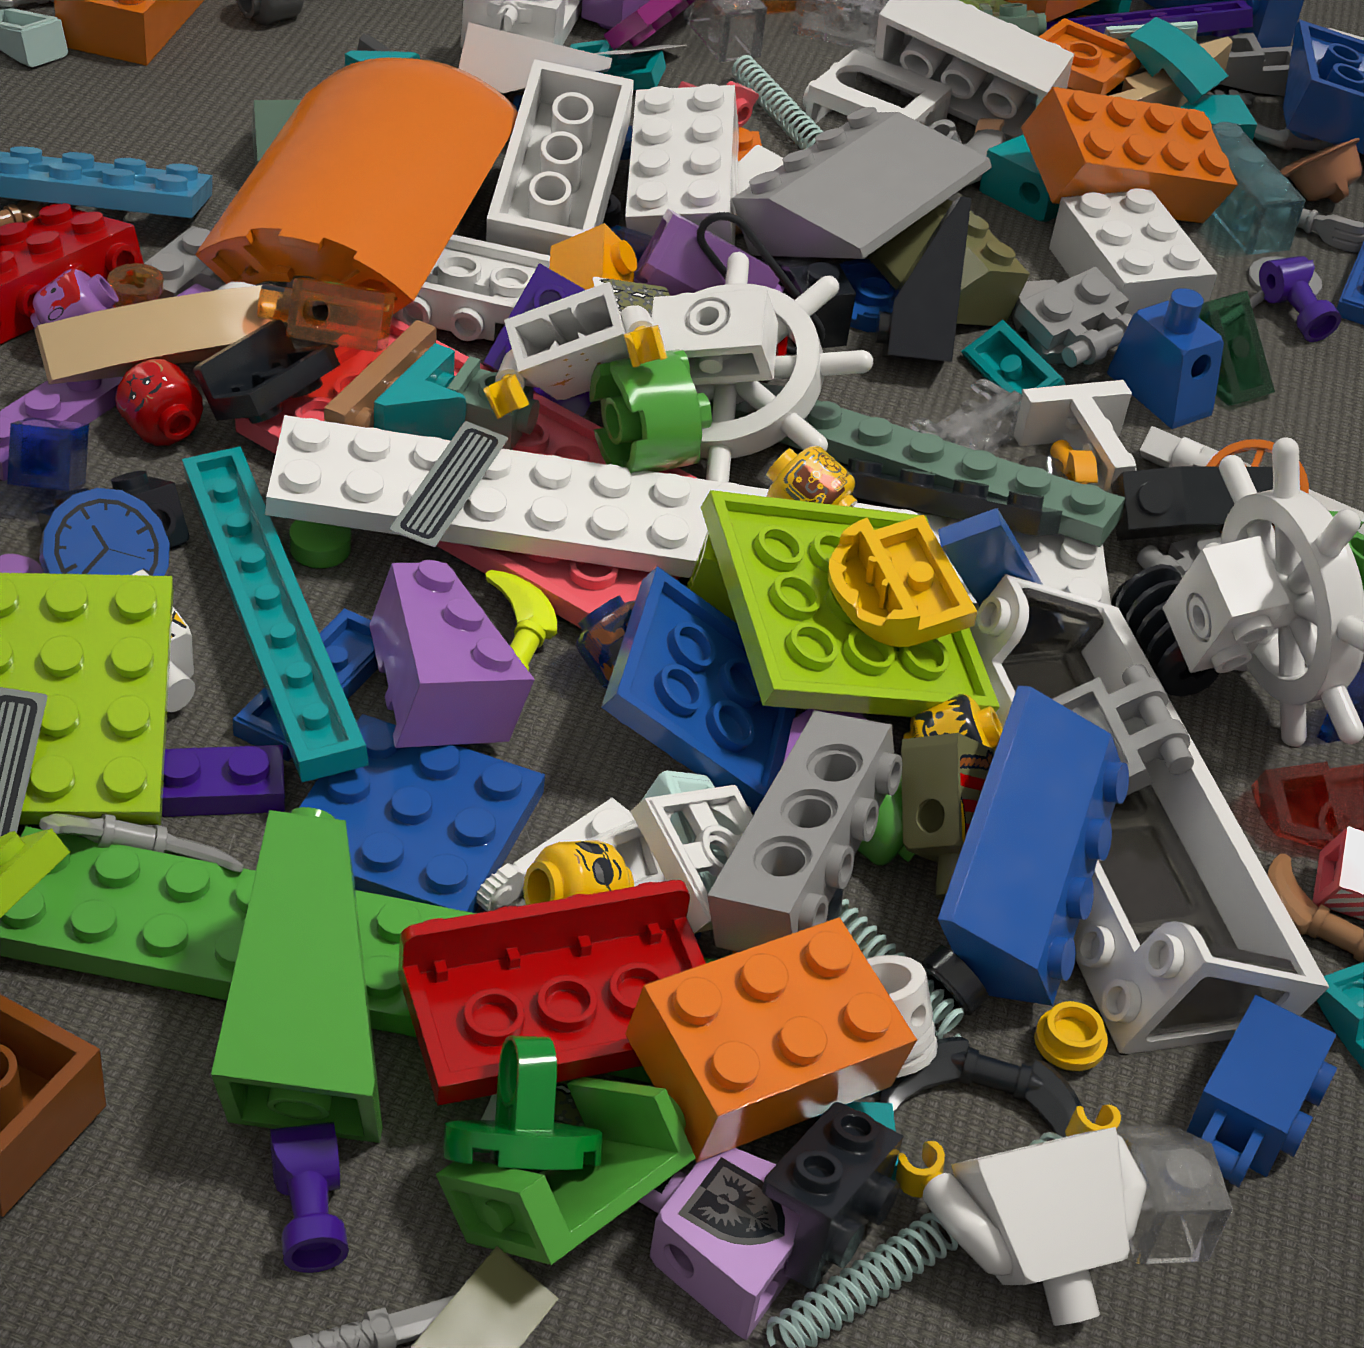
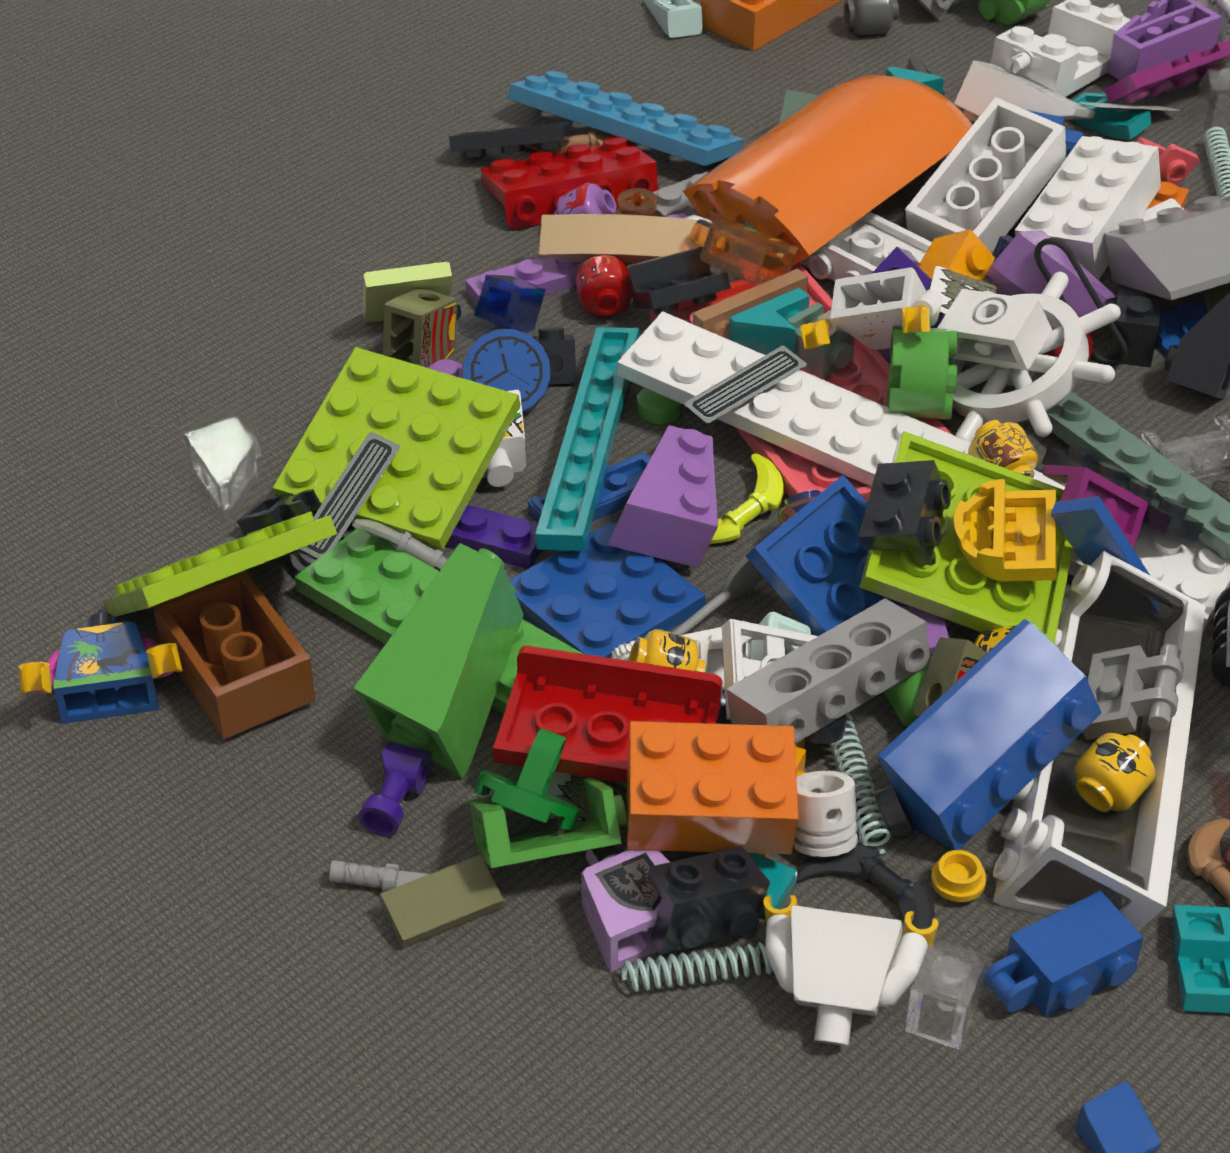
camera: 35 degrees right, 0 degrees up
(564, 784) = (738, 583): none -> light grey piece
(775, 589) = (906, 509): none -> black bracket
(941, 501) = (1082, 482): none -> magenta panel
(1165, 841) = (1114, 772): none -> yellow head

